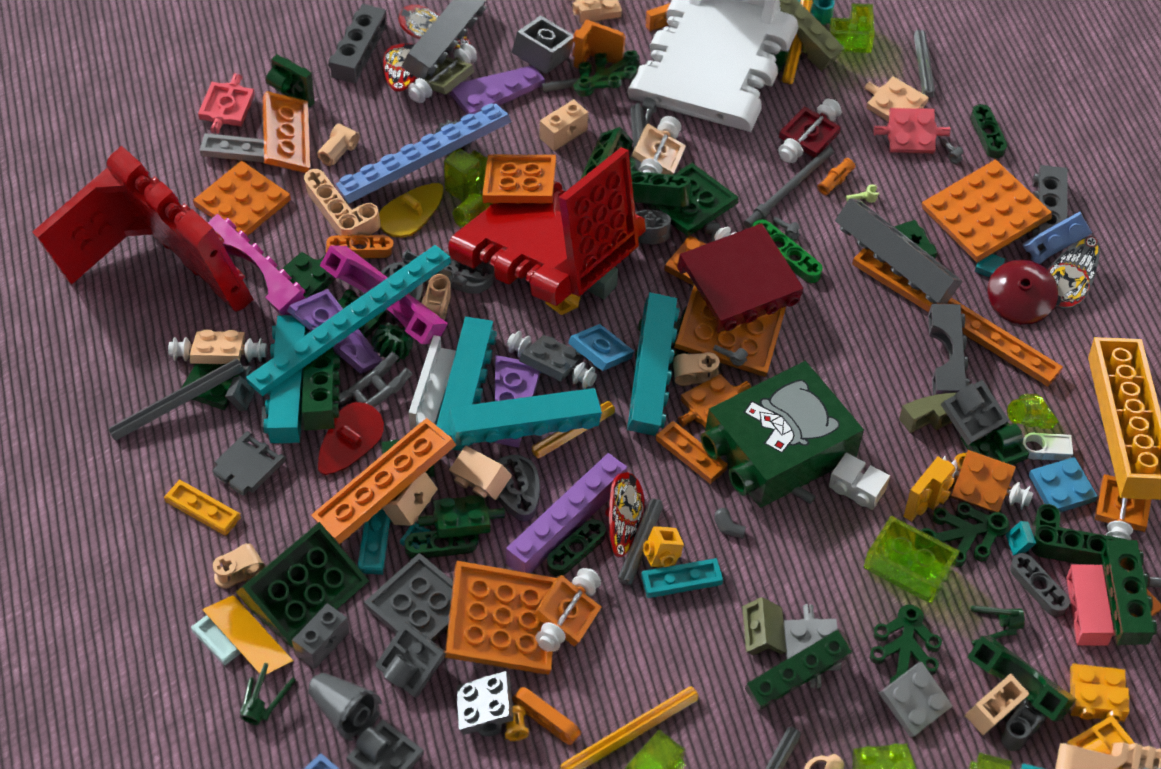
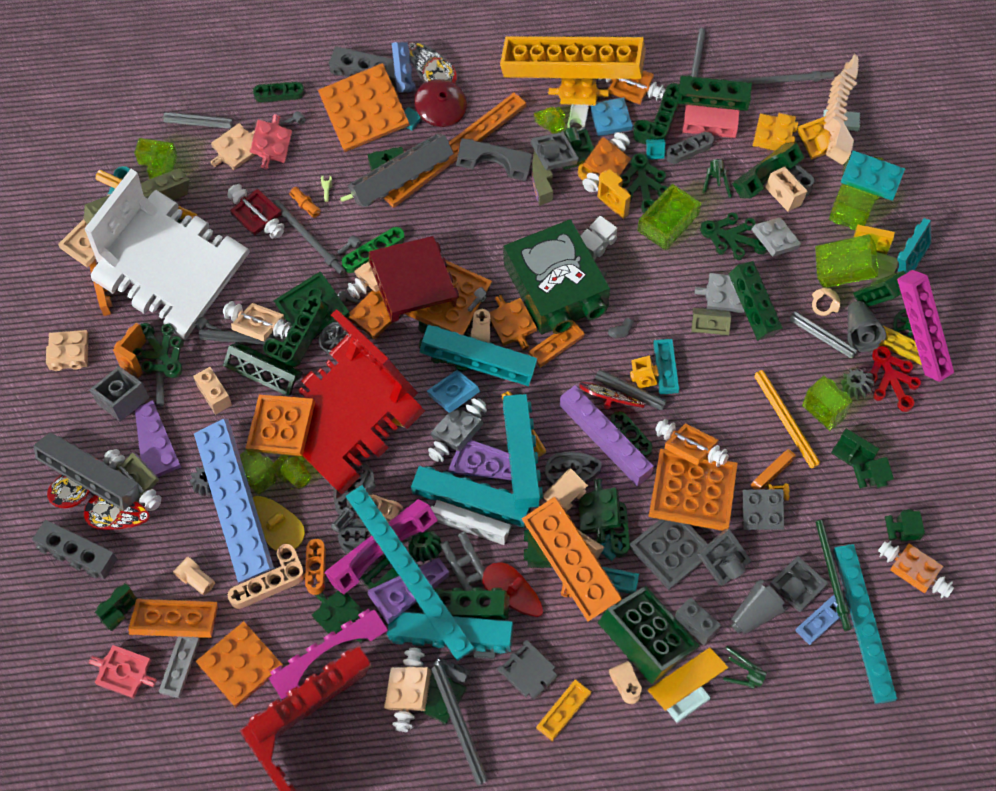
camera: 80 degrees left, 10 degrees up
(1086, 440) = (578, 91): none -> light orange plate

